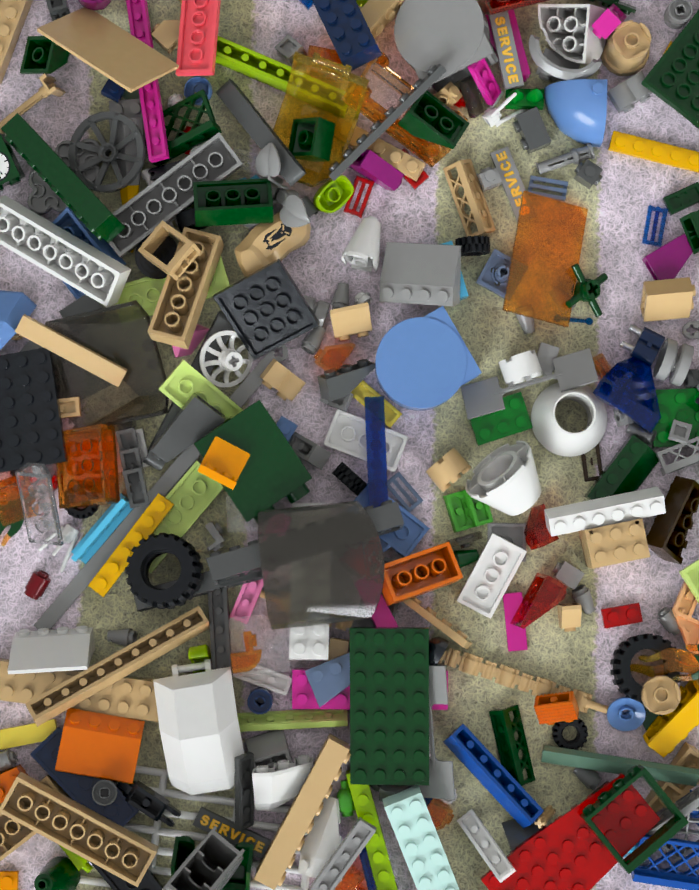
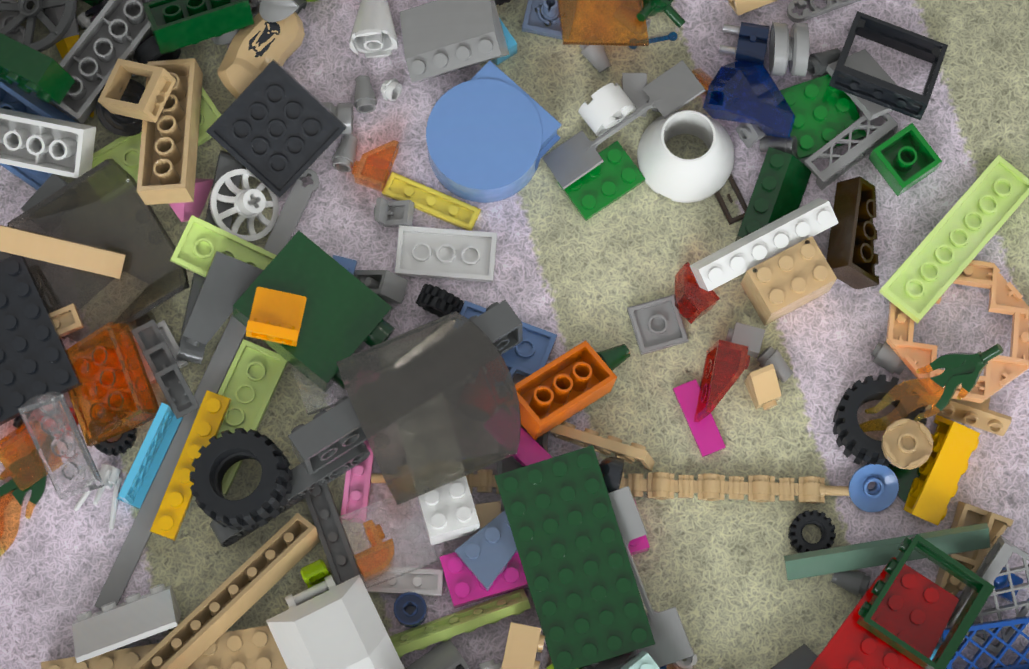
camera: 15 degrees left, 10 degrees down
(37, 584) = (85, 552): dark red brick -> none
(122, 636) = (209, 584): light grey cone -> none
(215, 530) = (291, 417): light grey bracket -> none
(282, 380) = (320, 210): tan brick -> none
(341, 382) = (394, 190): dark grey slope -> none
(351, 321) = (383, 113): tan slope -> none
(376, 450) = (460, 253): clear blue plate -> none
(414, 504) = (529, 314): sand blue tile -> none
(448, 469) = (557, 255): tan brick -> none
(465, 541) = (607, 335): clear smoke plate -> none
(466, 511) = (597, 298): bright green slope -> none
(491, 575) = (651, 368): white plate -> none
(493, 776) = (733, 613): blue brick -> none
(506, 479) = (634, 244): white cone -> none
(507, 745) = (742, 574): dark green fence -> none
(545, 817) = (814, 645): tan axle -> none
(556, 708) = (784, 503): orange brick -> none
(621, 615) = (827, 370): red plate -> none
(680, 431) = (824, 128): light grey plate -> none

